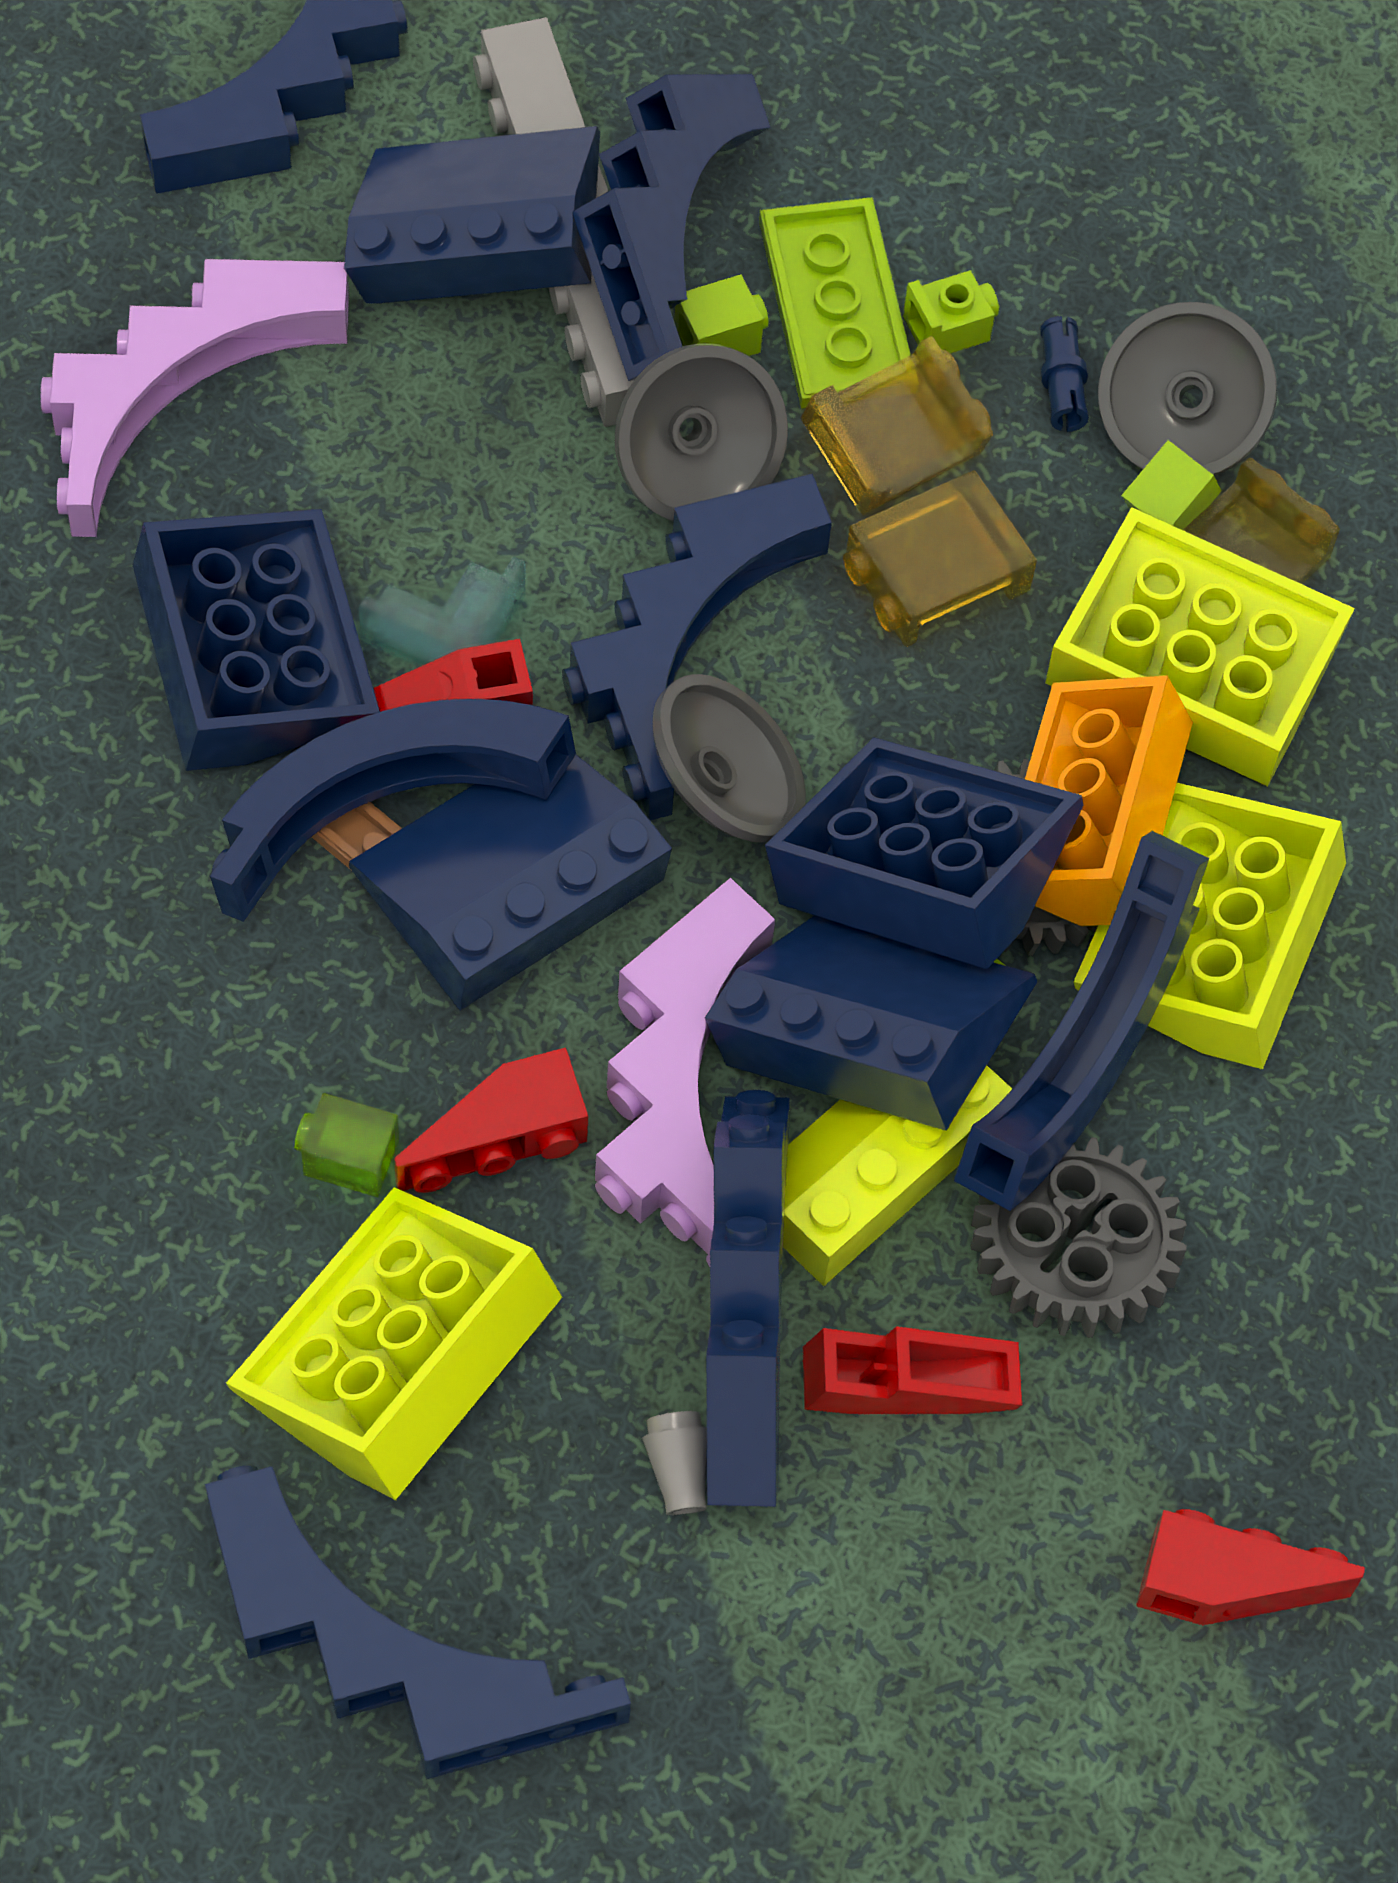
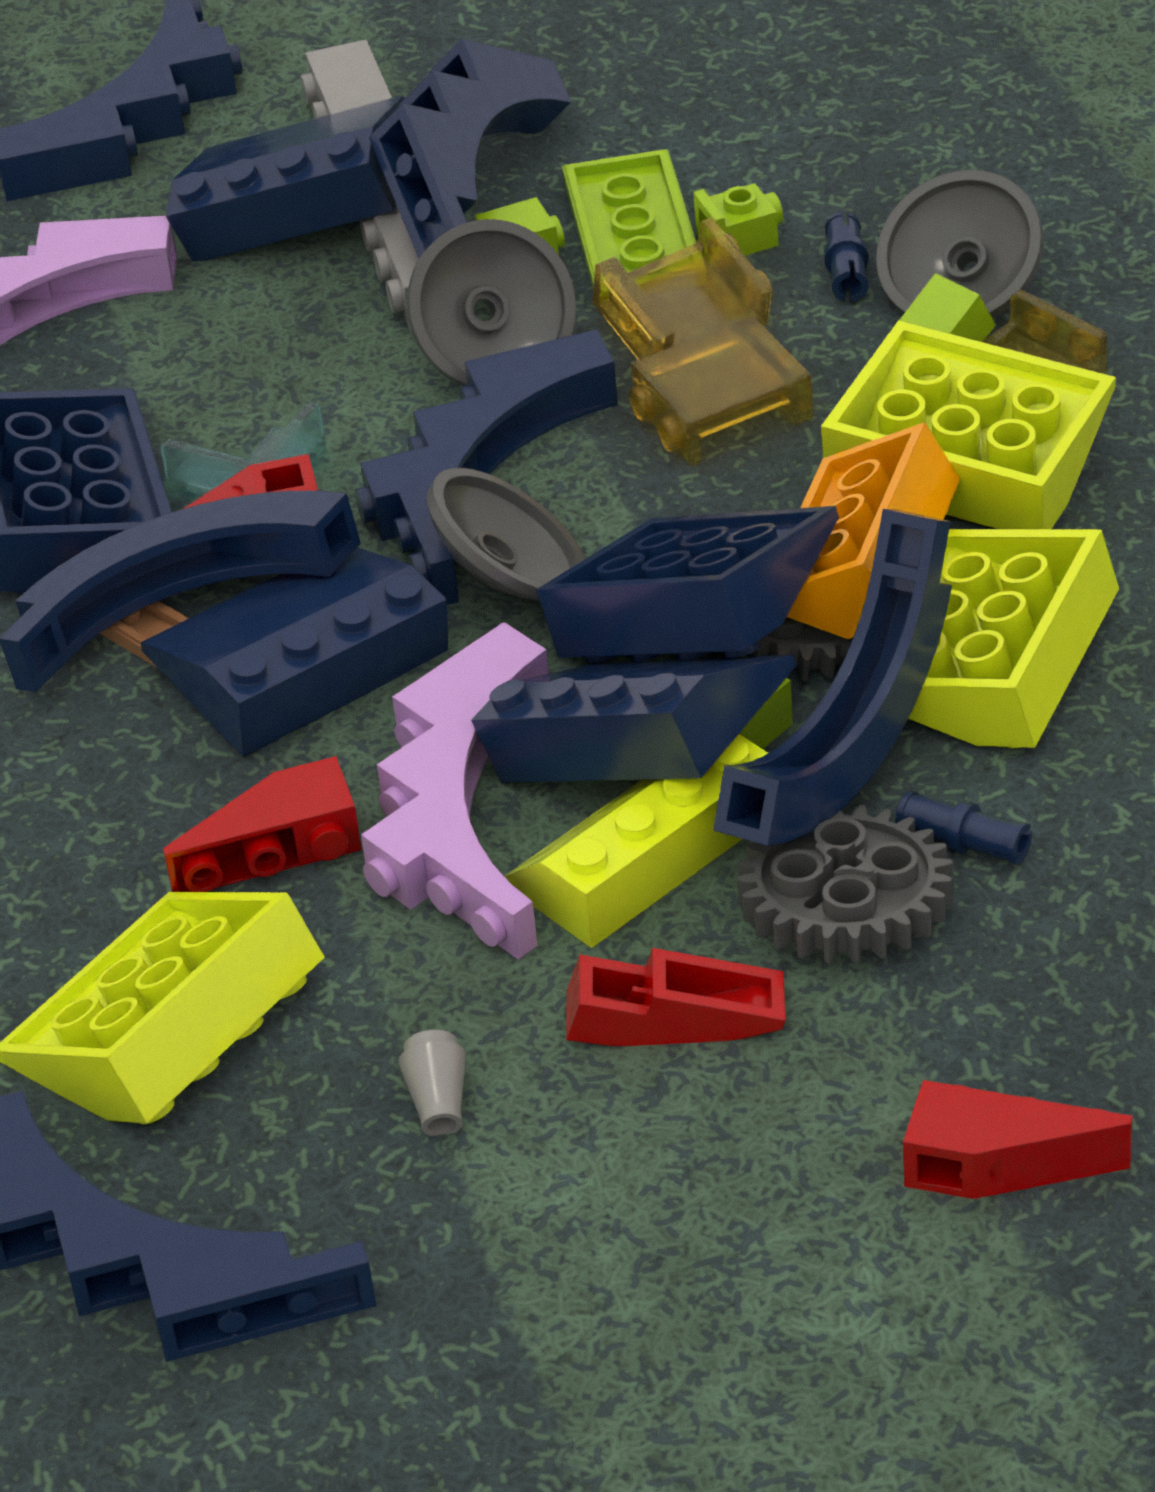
camera: 10 degrees right, 20 degrees down
(348, 1144) = (122, 853): clear neon green brick -> none
(746, 1300) = (496, 917): dark blue arch -> none
(1193, 1167) = (966, 827): none -> dark blue pin

